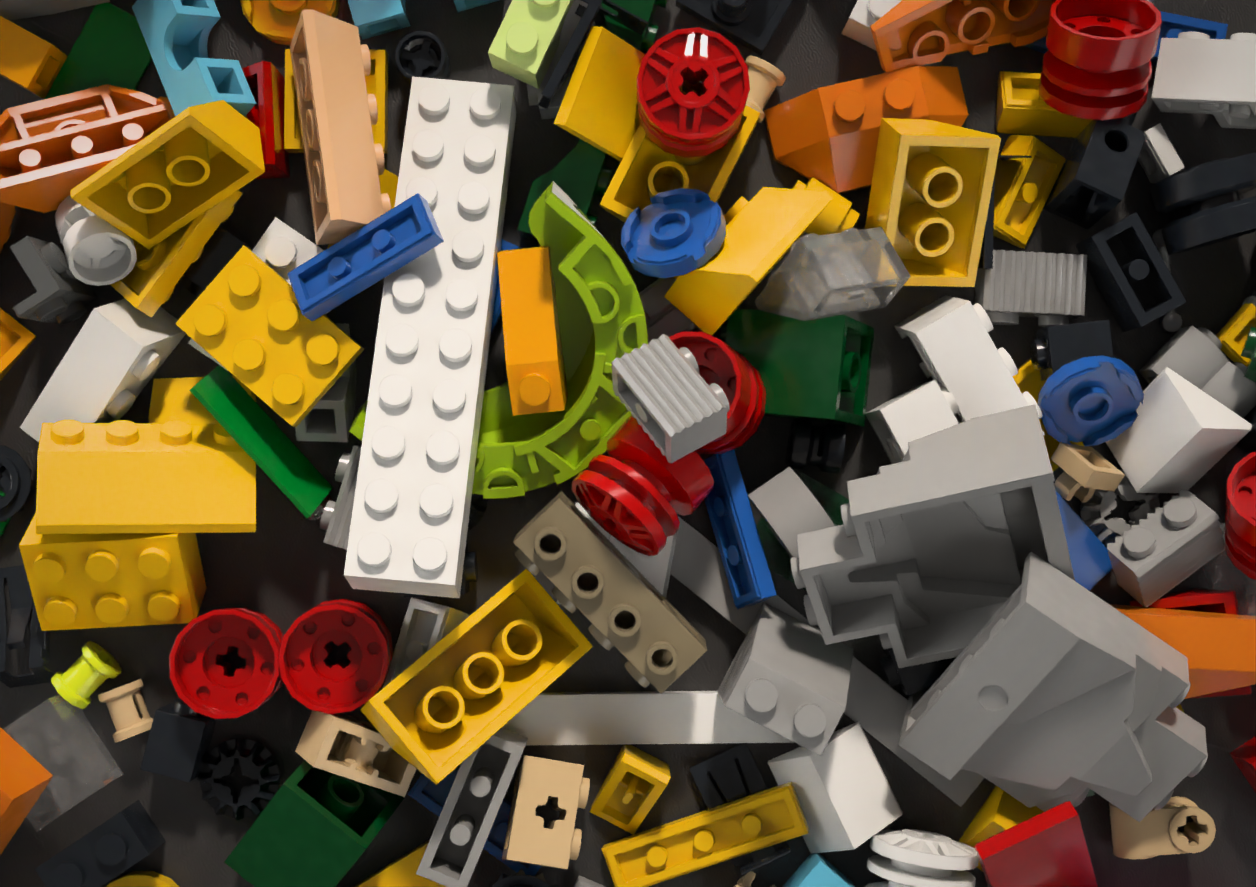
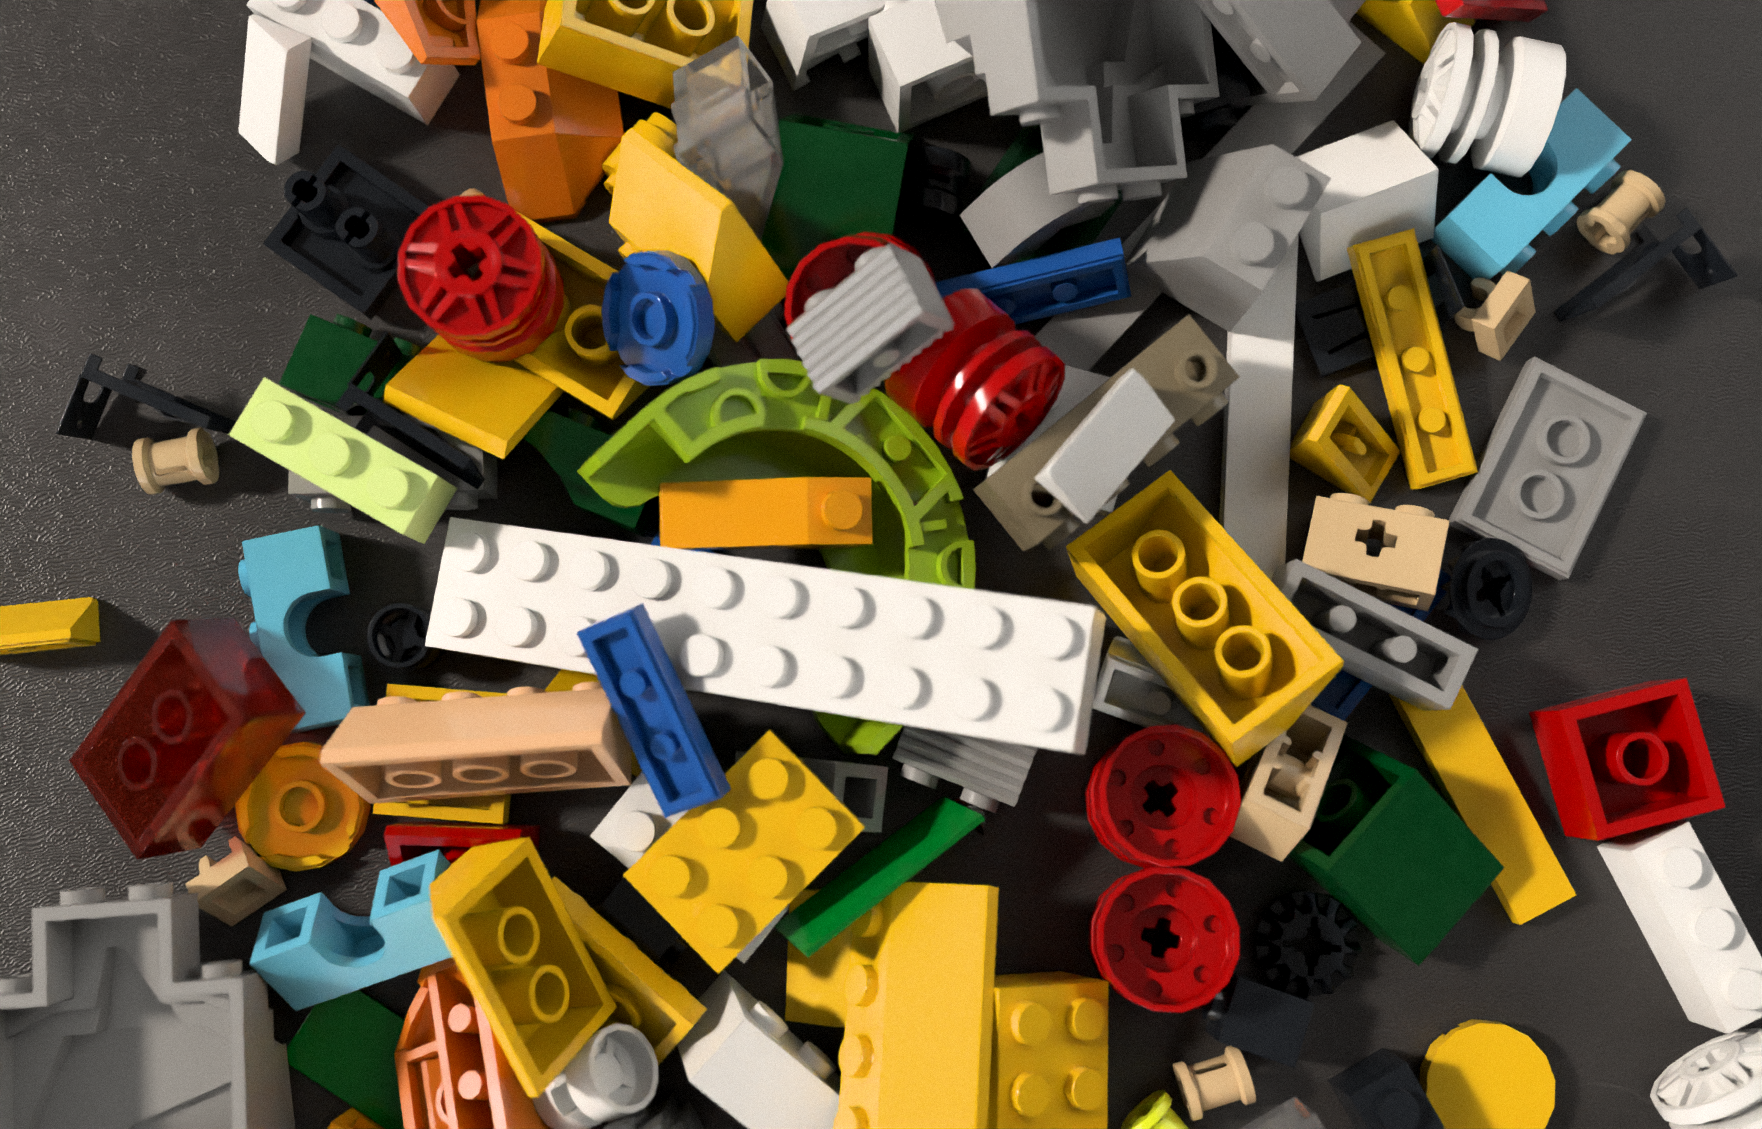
camera: 85 degrees left, 5 degrees down
(589, 589) = (1106, 446): none -> white slope

